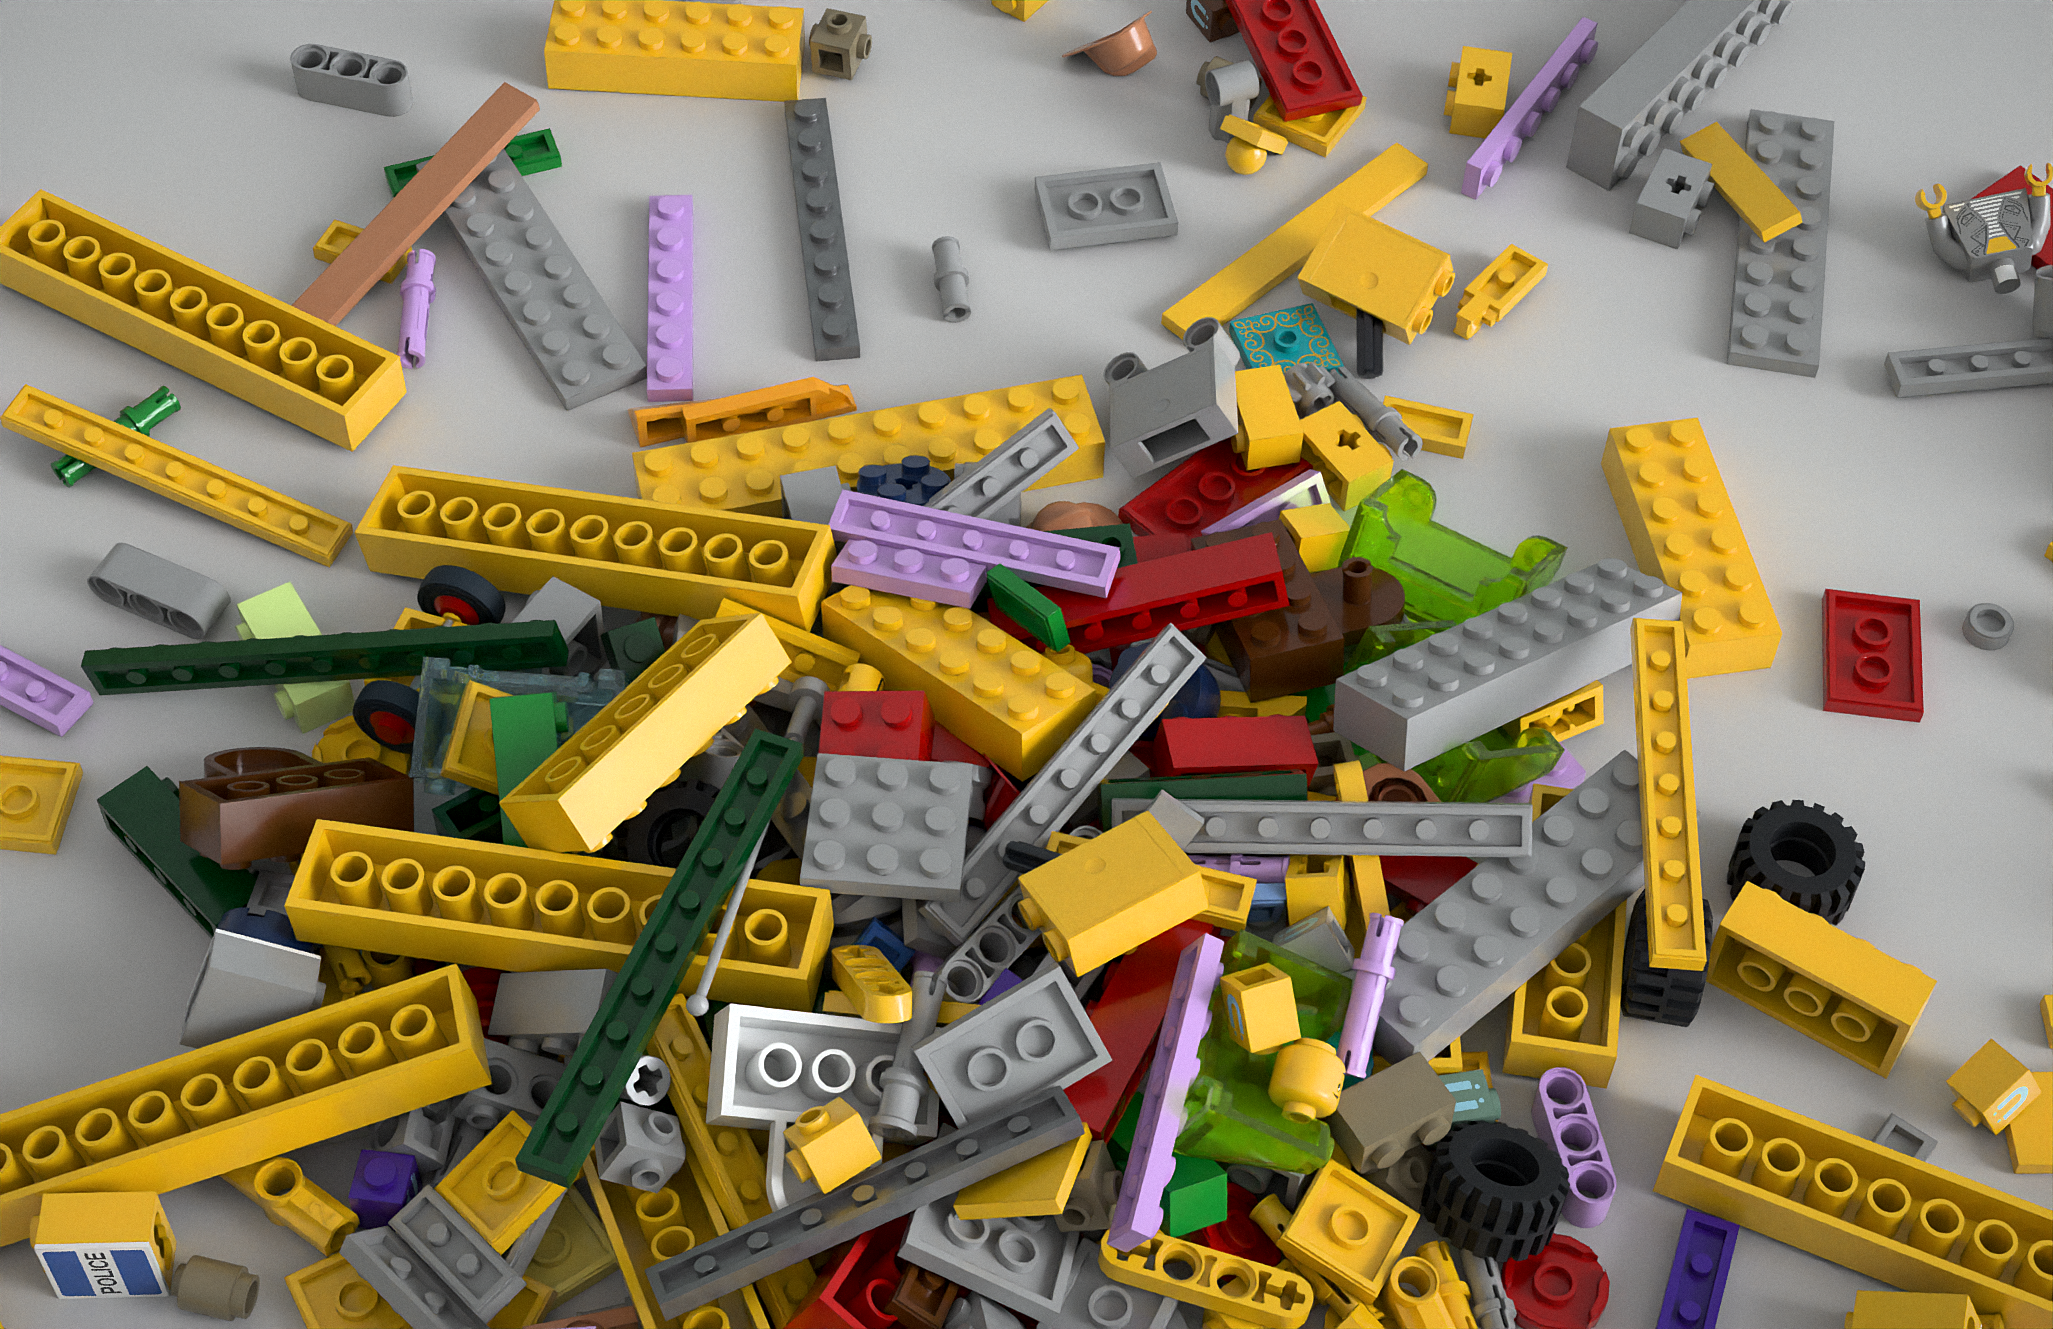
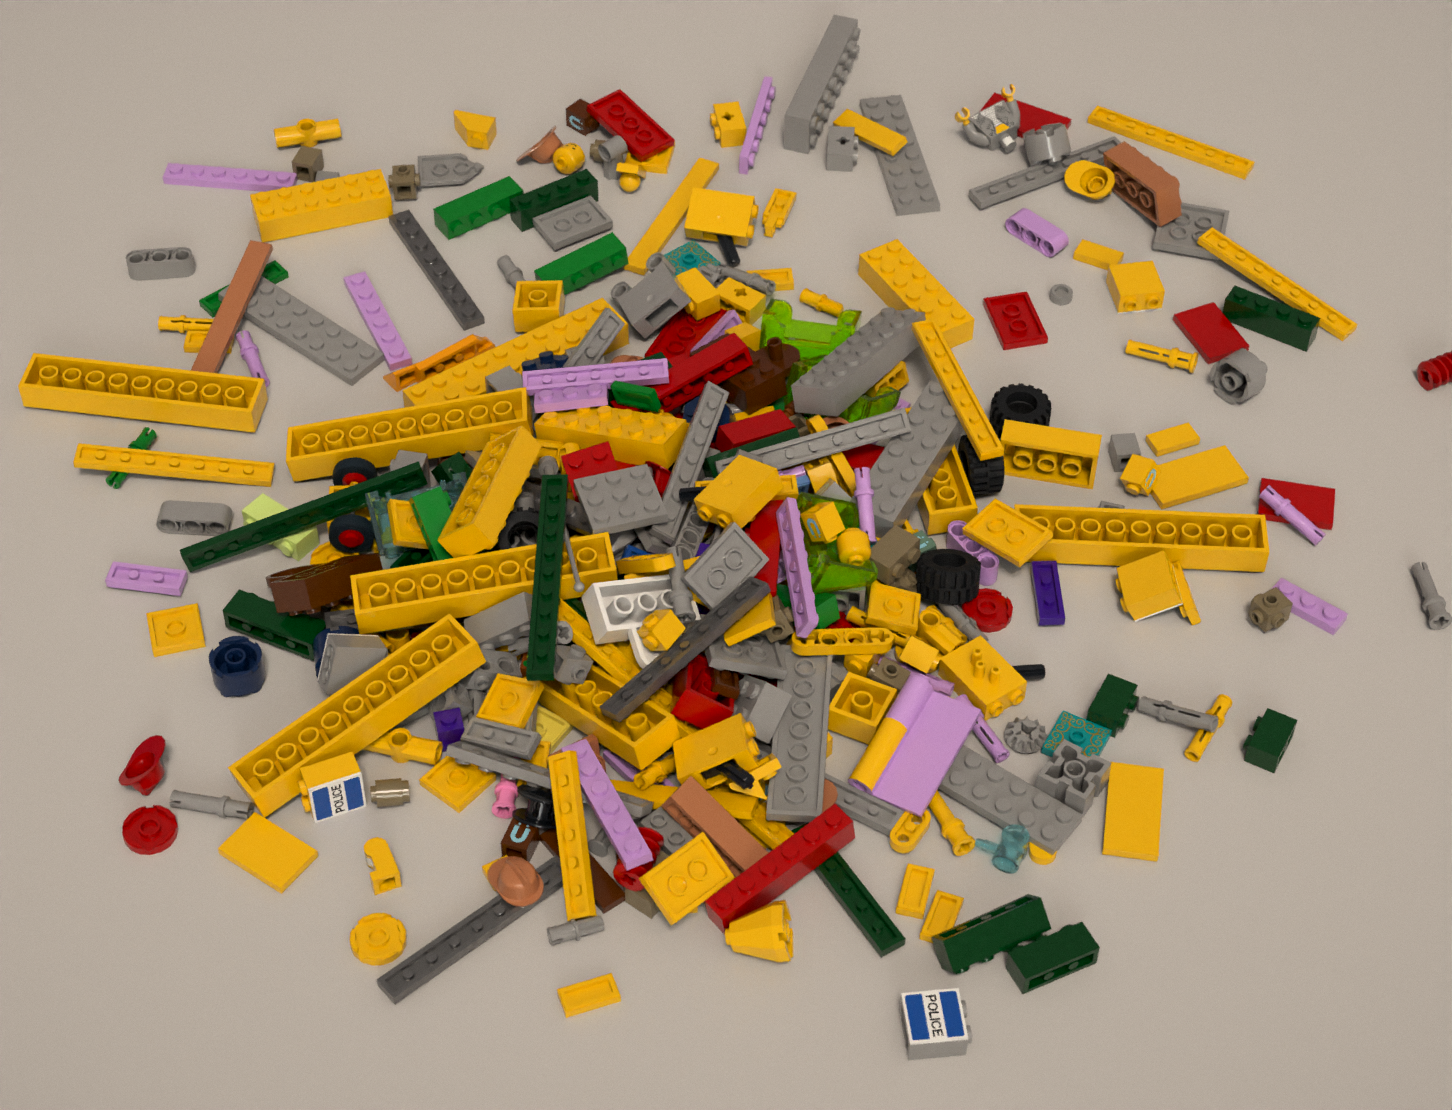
camera: 20 degrees left, 5 degrees down
(72, 922) = (237, 666): none -> dark blue brick
(331, 204) = (184, 324): none -> yellow pin
(929, 39) = (446, 169): none -> light grey tile
(950, 129) = (476, 208): none -> green brick
(961, 351) = (537, 303): none -> yellow brick
(1077, 299) = (585, 263): none -> green brick
(1088, 146) = (552, 196): none -> dark green brick
(1155, 78) = (568, 158): none -> yellow head
(1500, 503) = (821, 302): none -> yellow axle
(1654, 1137) = (1007, 532): none -> yellow tile
(1981, 1013) = (1121, 450): none -> light grey brick
(1989, 480) = (1036, 232): none -> lavender beam

